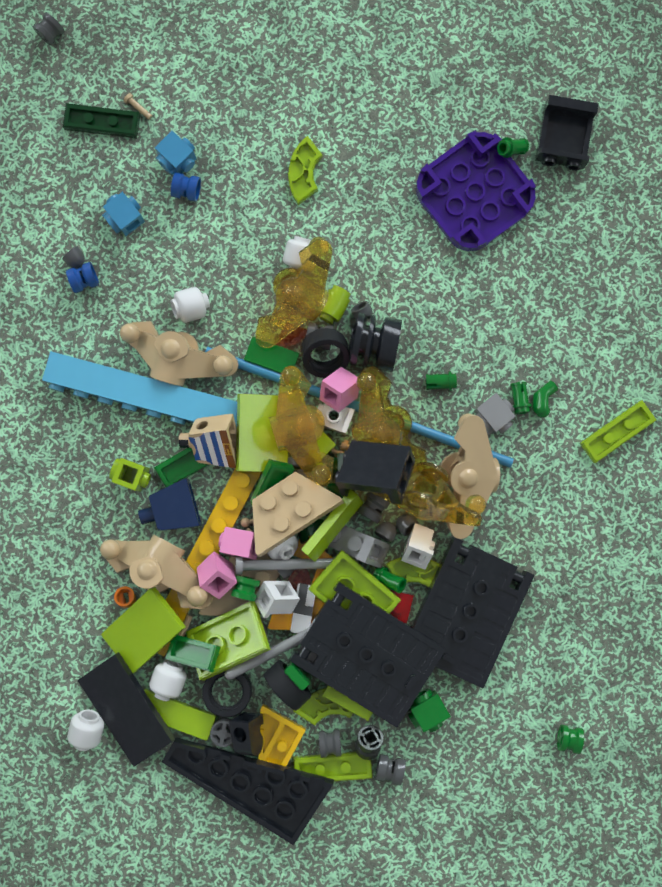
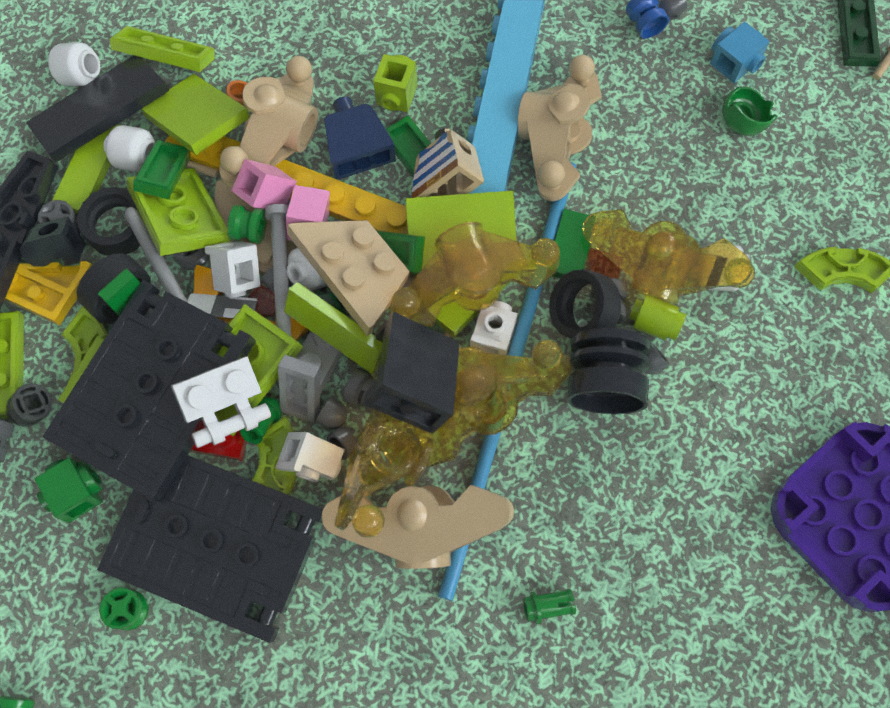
camera: 90 degrees right, 15 degrees down
(75, 660) = (162, 48): none -> lime tile
(175, 154) = (833, 103): dark azure brick -> none
(176, 216) = (747, 112): none -> green hair
(185, 187) = (791, 120): blue wheel -> none
(189, 304) = (630, 136): white head -> none
(330, 743) = (33, 354): dark grey wheel -> none
(339, 389) = (532, 322): bright pink brick -> none
(377, 605) = (218, 389): none -> white plate
(441, 381) = (562, 480): green pin -> none
(496, 414) = (517, 563): light grey brick -> none
(513, 672) = (116, 604): none -> green wheel
(540, 399) = (550, 640): green arm -> none

